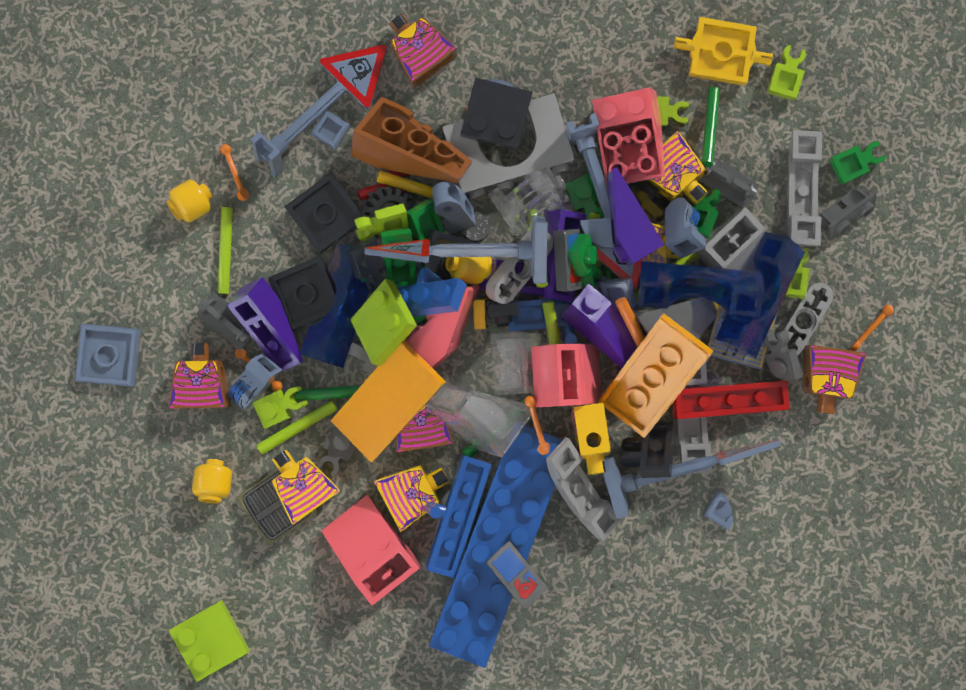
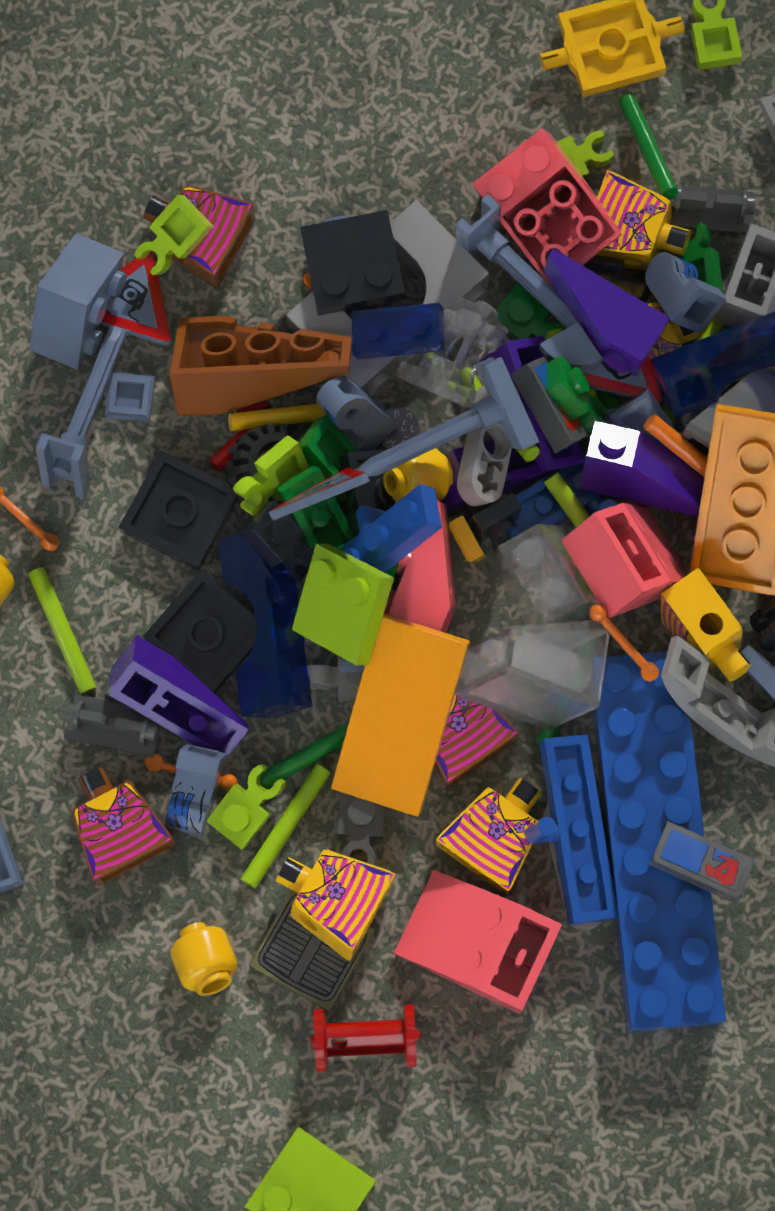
camera: 30 degrees left, 10 degrees down
(279, 572) = (365, 1038): none -> red hose
(321, 55) = (74, 301): none -> sand blue brick
(401, 45) = (177, 232): none -> lime plate
(501, 170) = (398, 331): none -> clear blue plate

